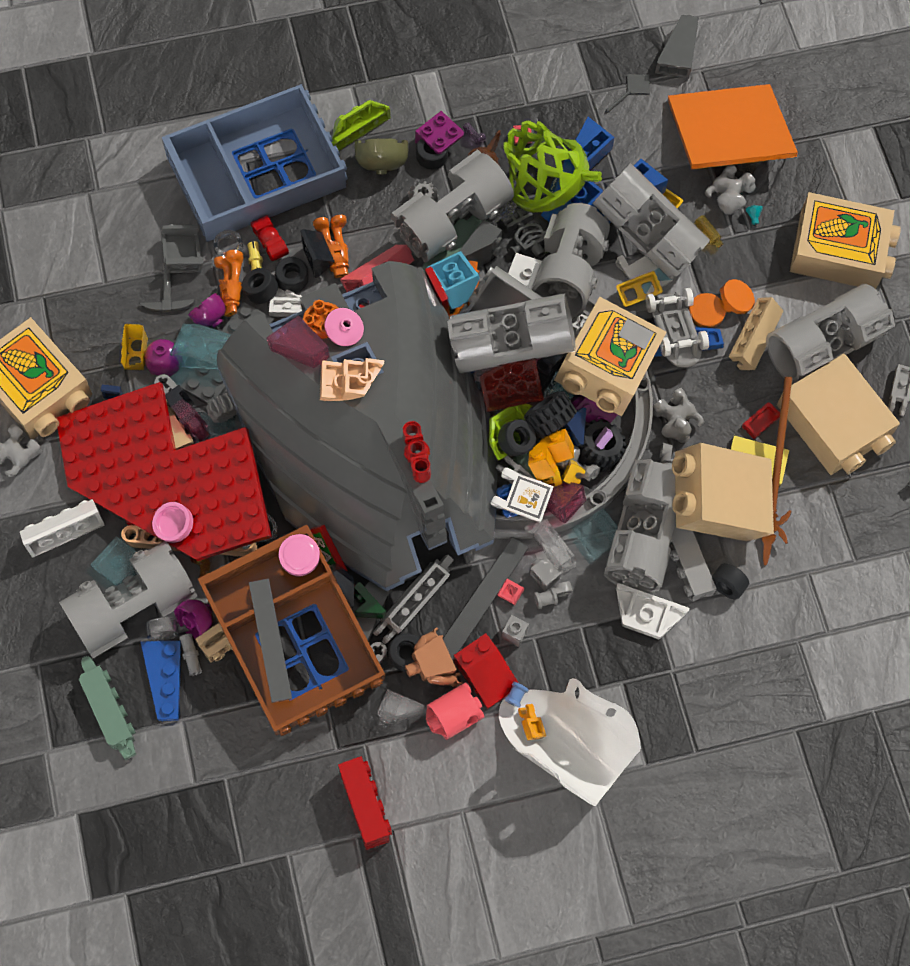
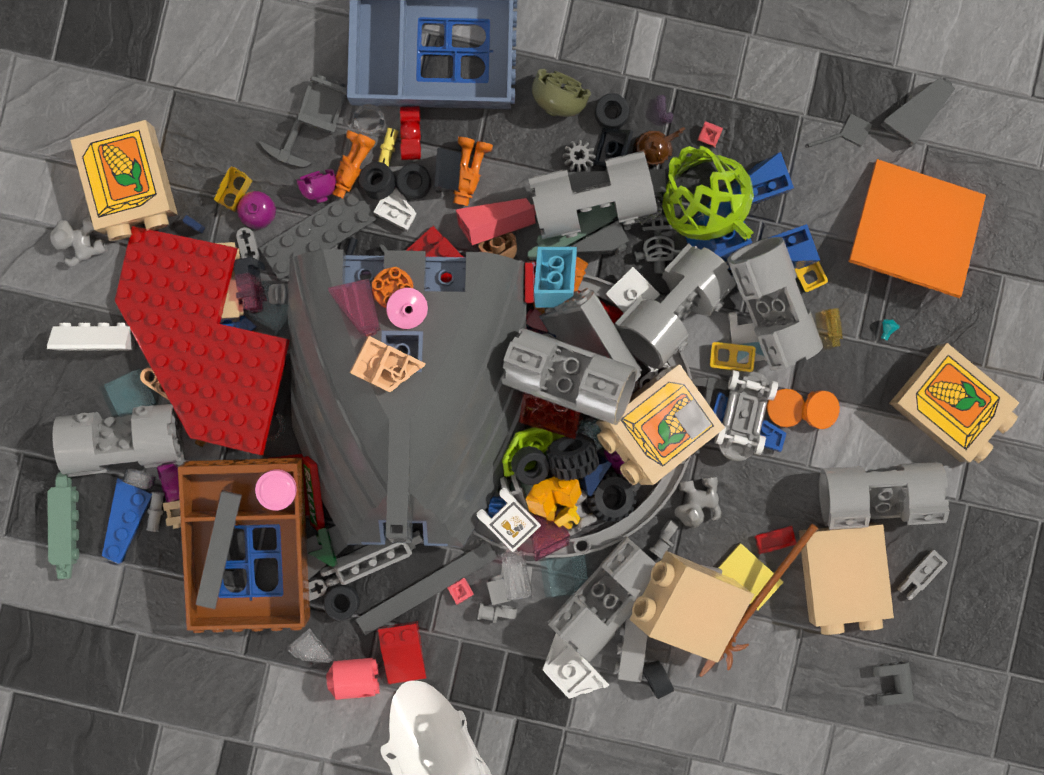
camera: 25 degrees right, 20 degrees up
(172, 522) = (183, 395): bright pink piece -> none
(198, 346) = (296, 222): clear light blue slope -> none
(345, 582) = (309, 523): black slope -> none
(358, 122) = (553, 44): lime wedge -> none
(364, 804) = (239, 719): red brick -> none
(420, 459) = (413, 466): red piece -> none
(433, 661) = (357, 625): nougat torso -> none
(439, 133) = (627, 97): magenta bracket -> none
(440, 175) = (611, 145): none -> black slope
(515, 630) = (445, 630): light grey brick -> none
(516, 694) = (417, 687): medium blue bush -> none
(532, 725) = (418, 720): light orange plate -> none
(603, 438) = (613, 497): lavender tile -> none
(730, 189) = (872, 307): light grey animal -> none
(753, 336) = (817, 455): tan brick -> none

